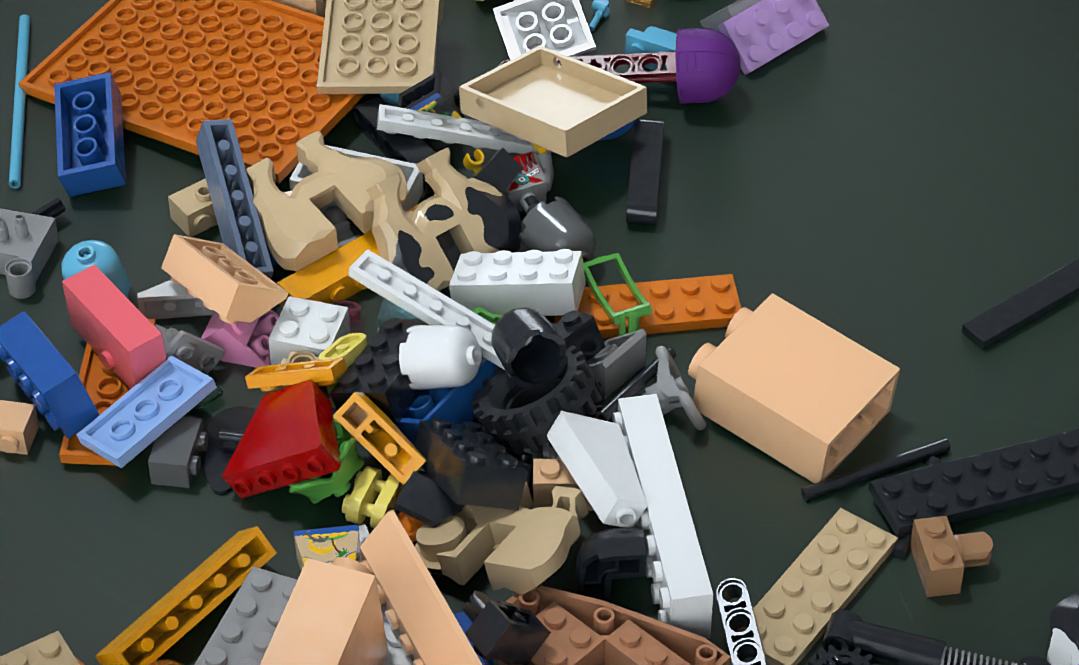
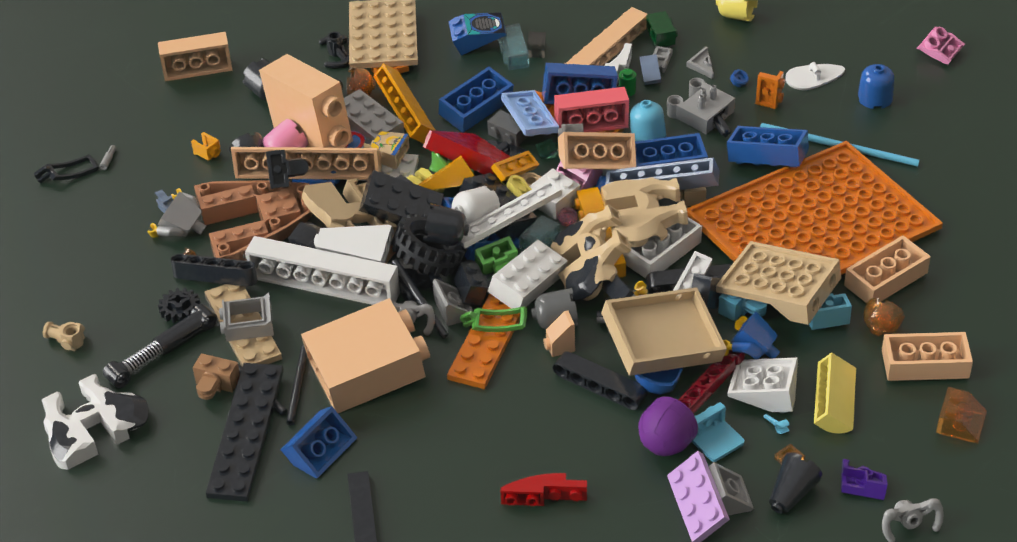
camera: 120 degrees right, 0 degrees up
(125, 513) = (474, 99): none -> blue brick
(144, 226) = (669, 150): none -> blue brick
(480, 51) = (753, 338): none -> blue torso
(604, 217) = (560, 335): none -> light nougat slope
(835, 581) = (246, 329): none -> light grey window
(862, 160) = (536, 488): none -> red slope
(962, 392) = (319, 442): none -> blue slope

